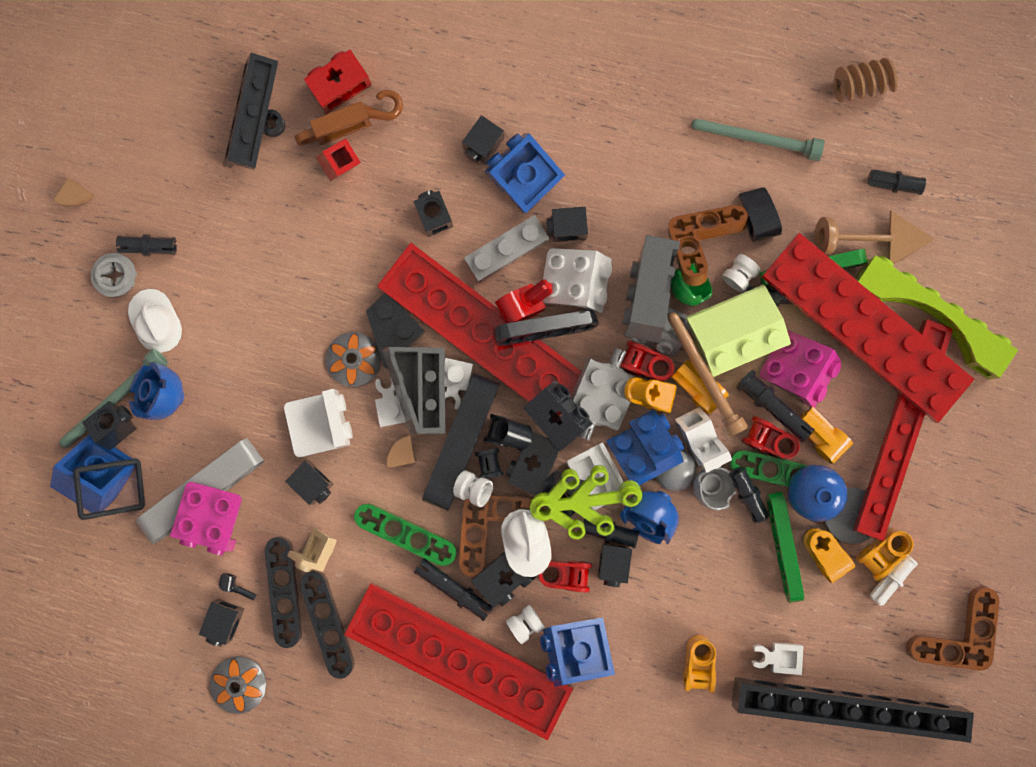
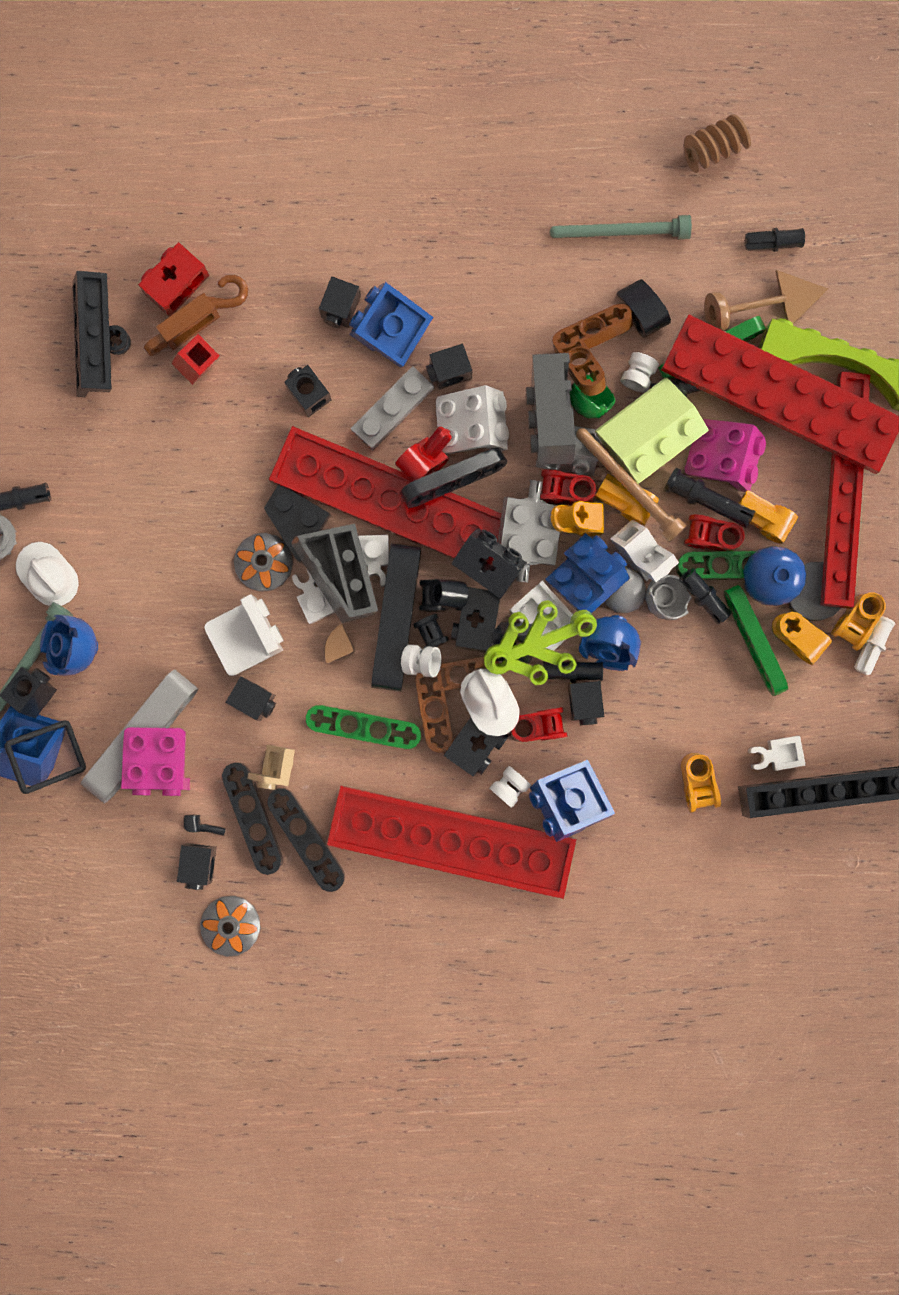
camera: 15 degrees left, 0 degrees up
(453, 589) = (438, 774): black pin -> none

